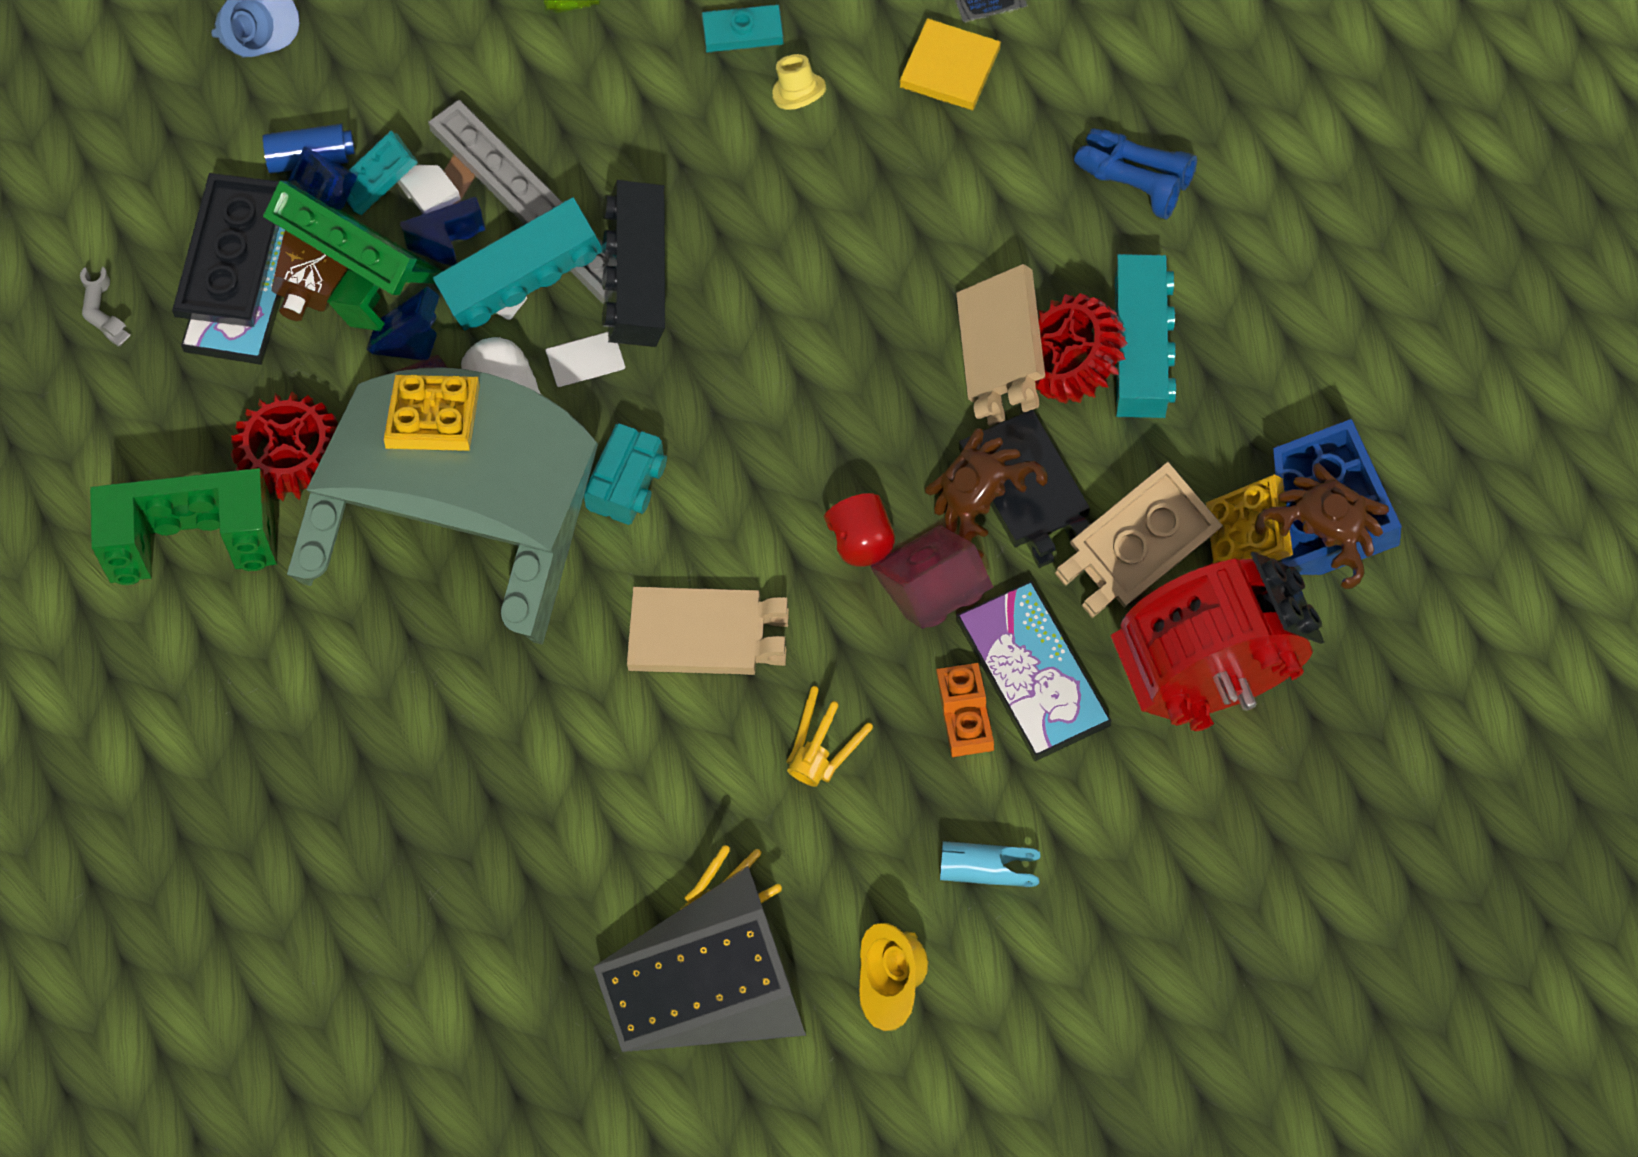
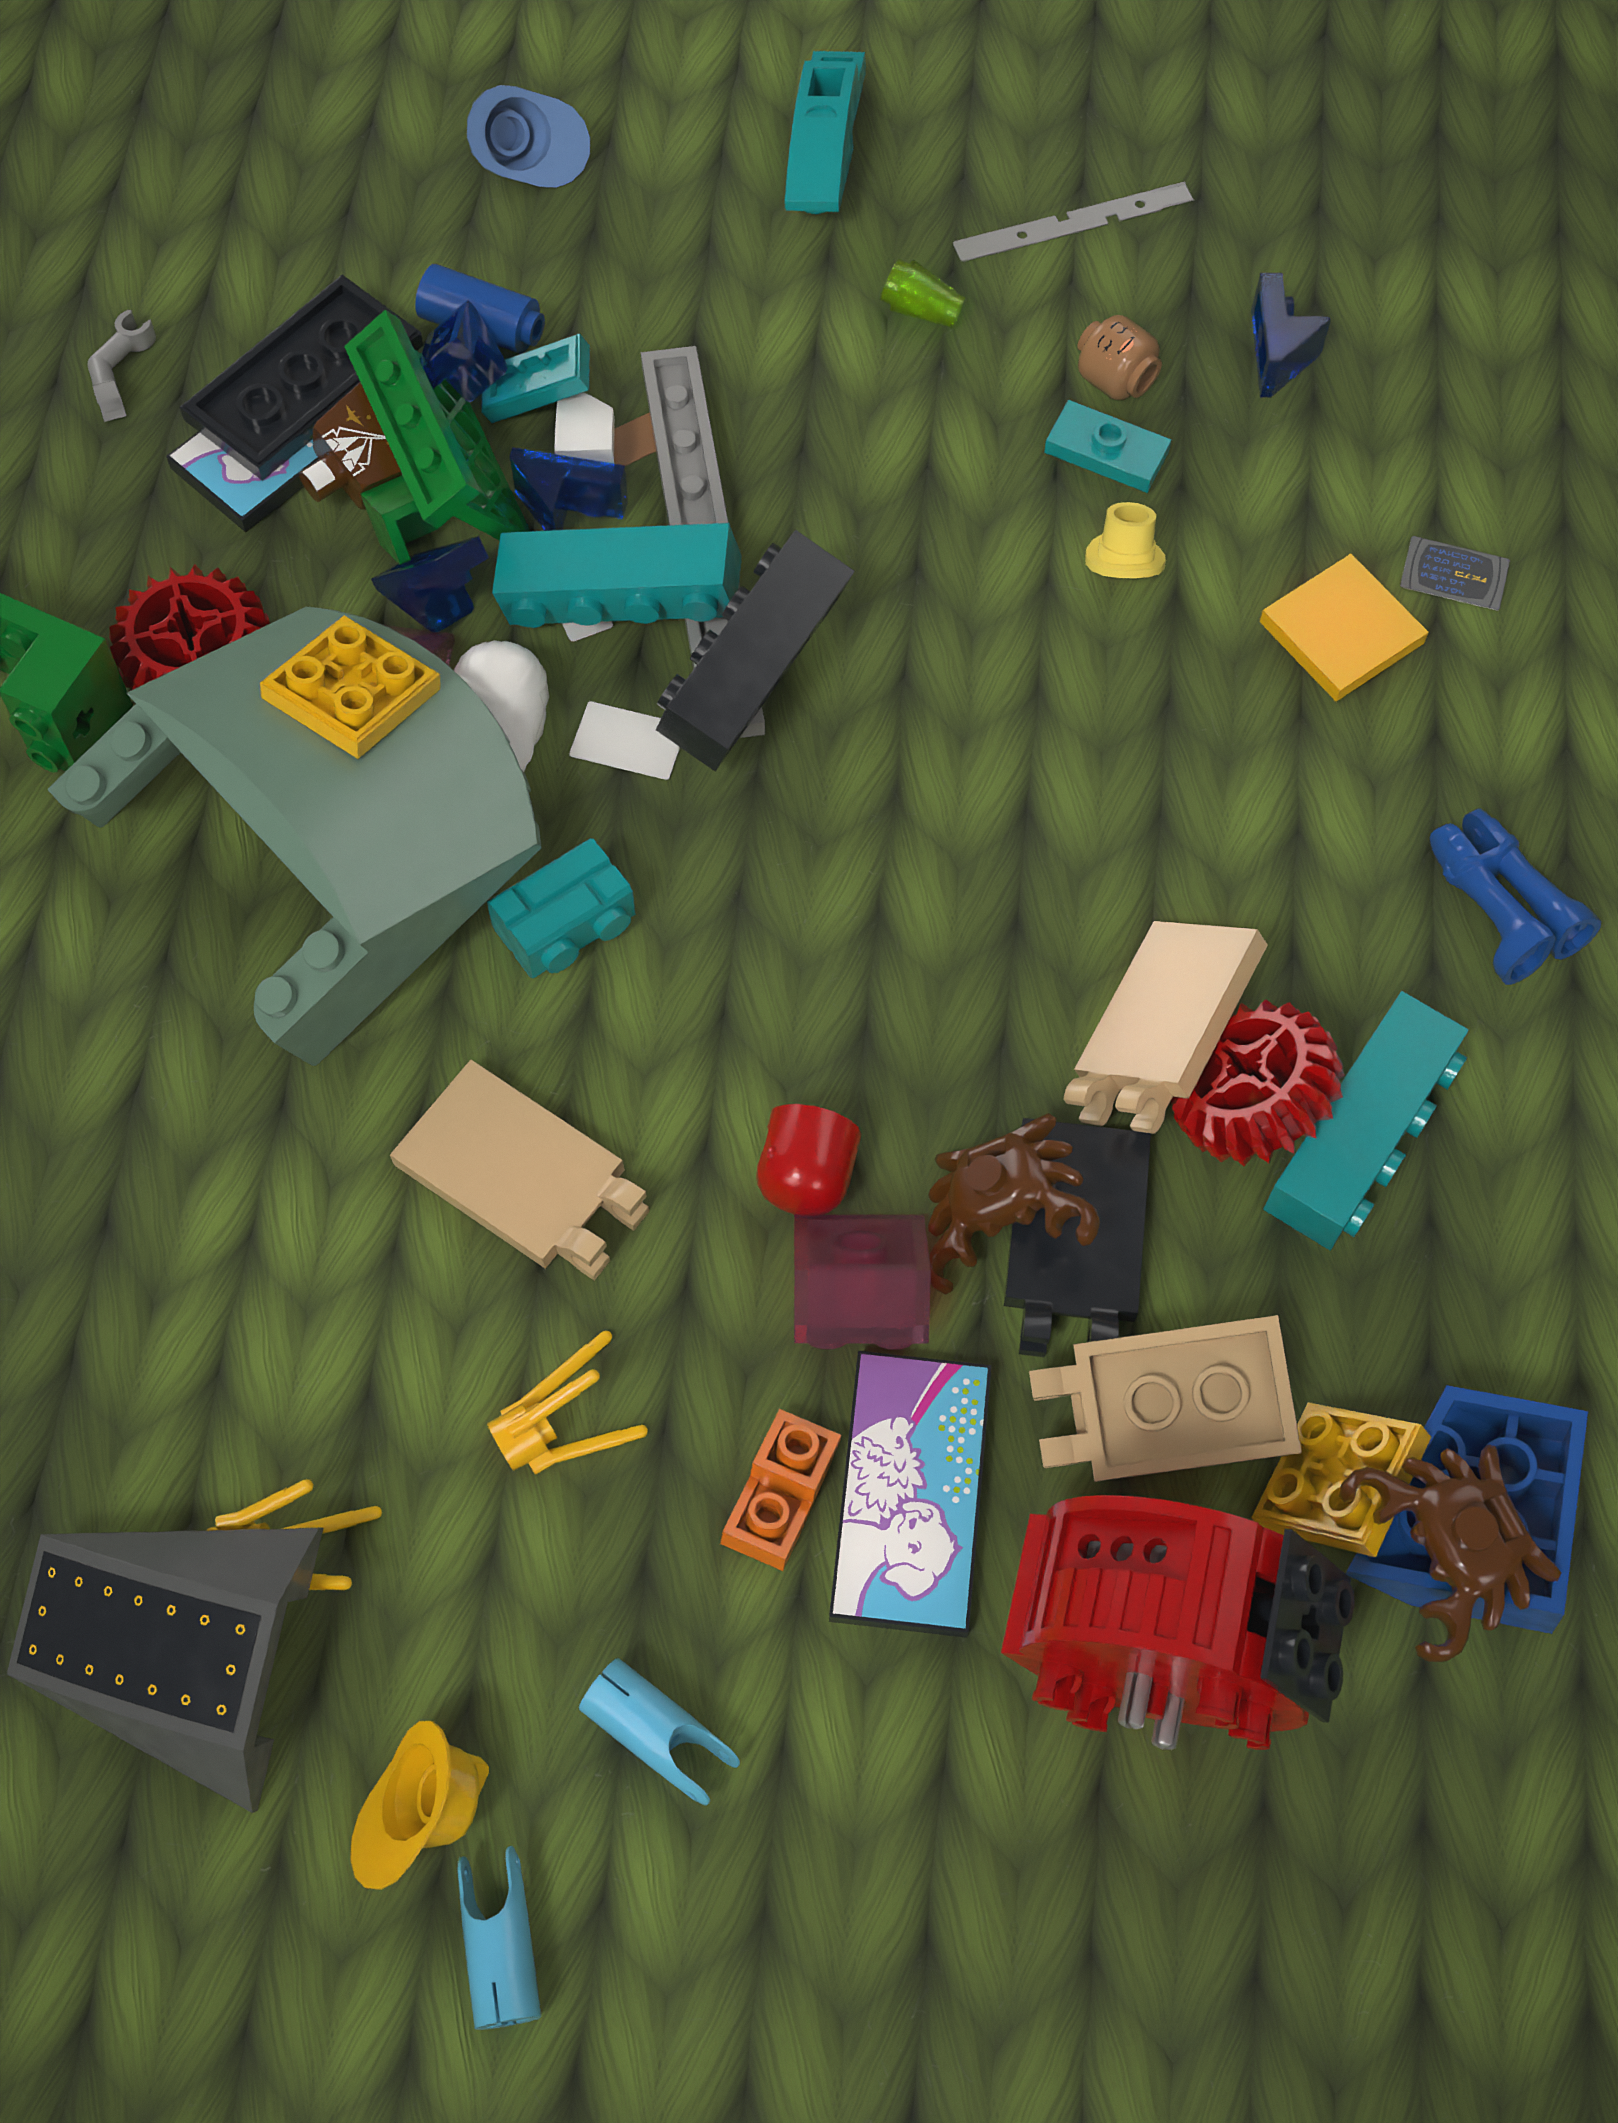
camera: 30 degrees right, 0 degrees up
(986, 1019) = (499, 1953): none -> medium azure piece

